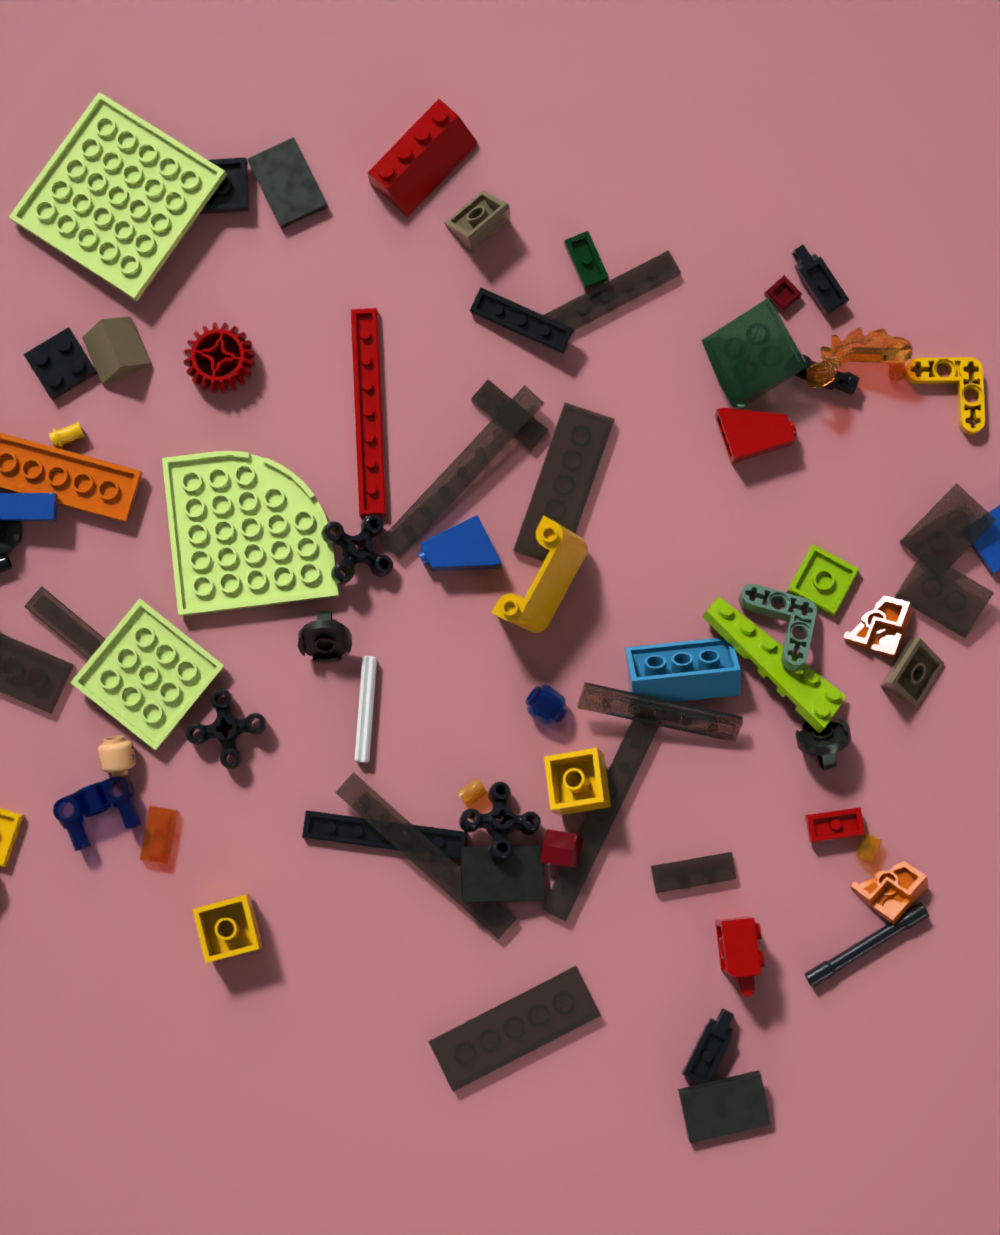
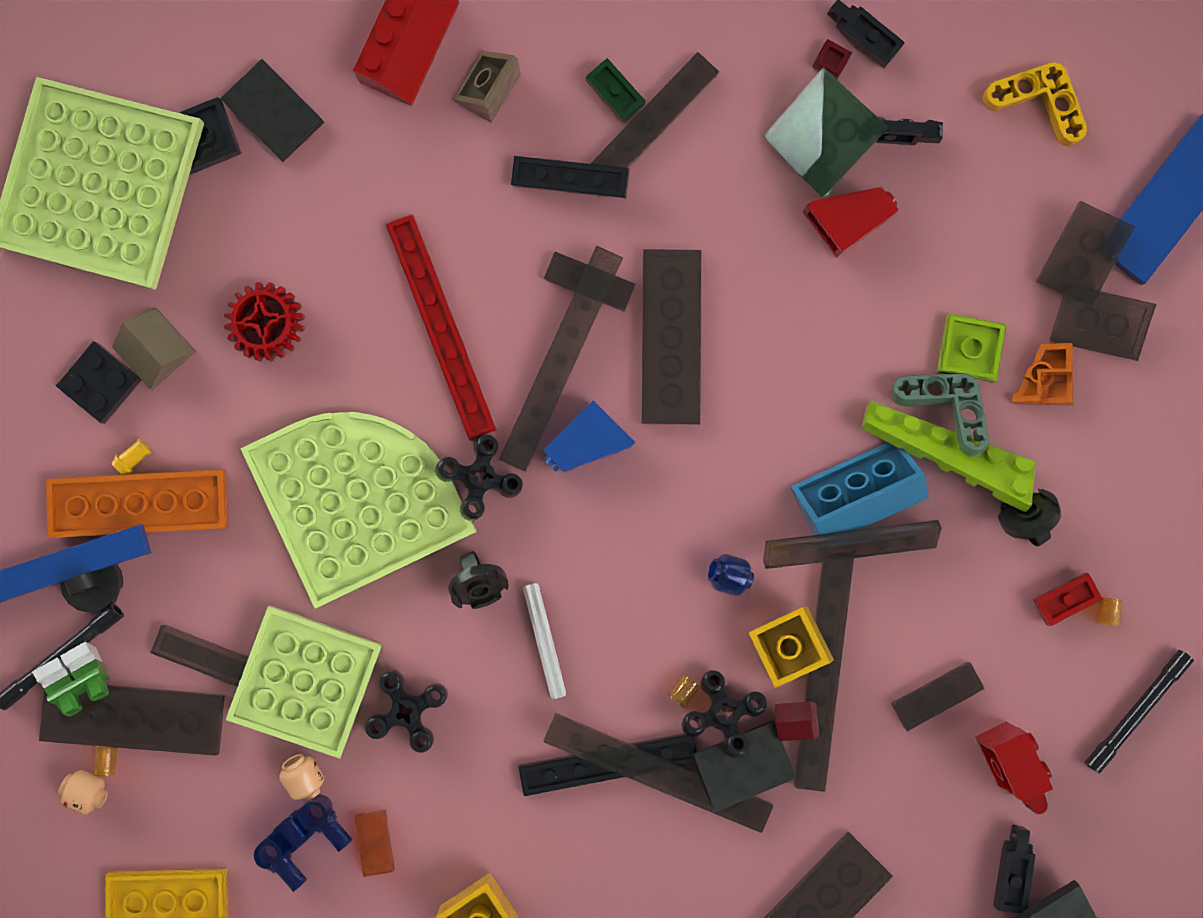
camera: 20 degrees left, 5 degrees up
(551, 582) = (702, 410): yellow windscreen -> none
(856, 347) = (930, 91): clear orange animal -> none
(892, 890) = (1146, 647): orange slope -> none
(913, 672) = (1094, 413): dark tan slope -> none

